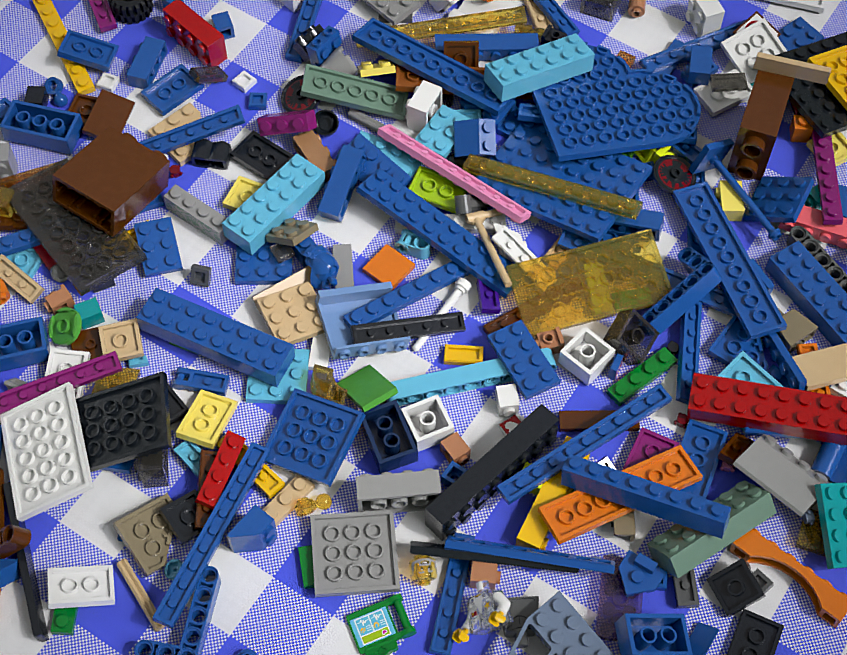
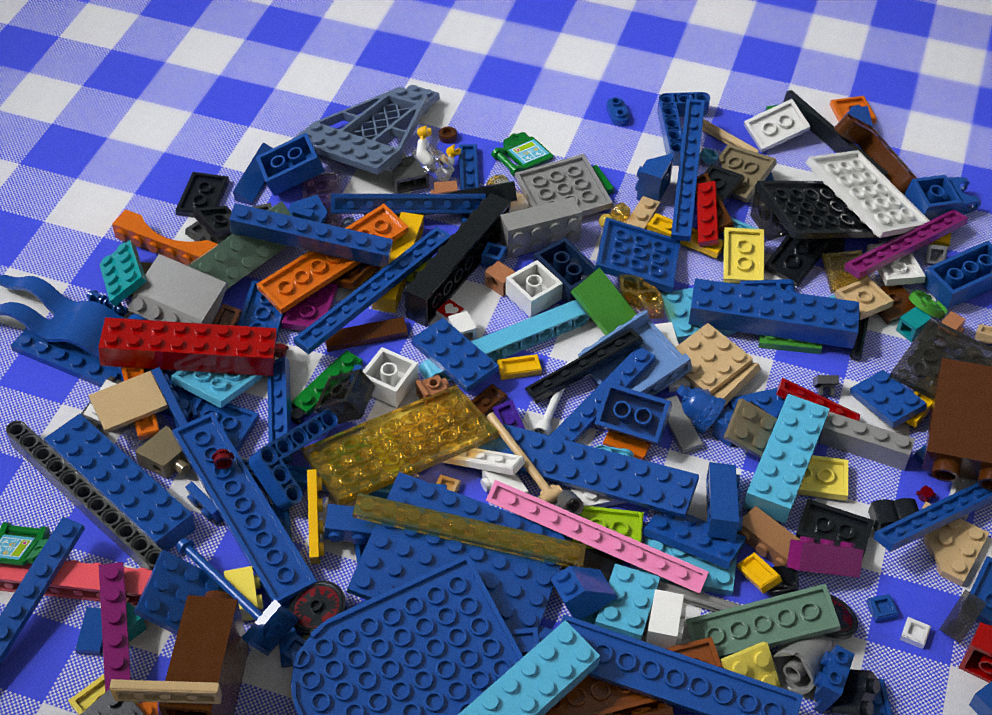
camera: 165 degrees right, 10 degrees down
(222, 249) = (787, 387): none -> red plate
(338, 130) = (759, 573): none -> yellow tile
(386, 259) = (633, 414): none -> blue brick
(668, 243) = (316, 526): none -> yellow plate
(743, 285) = (223, 459): none -> dark red plate

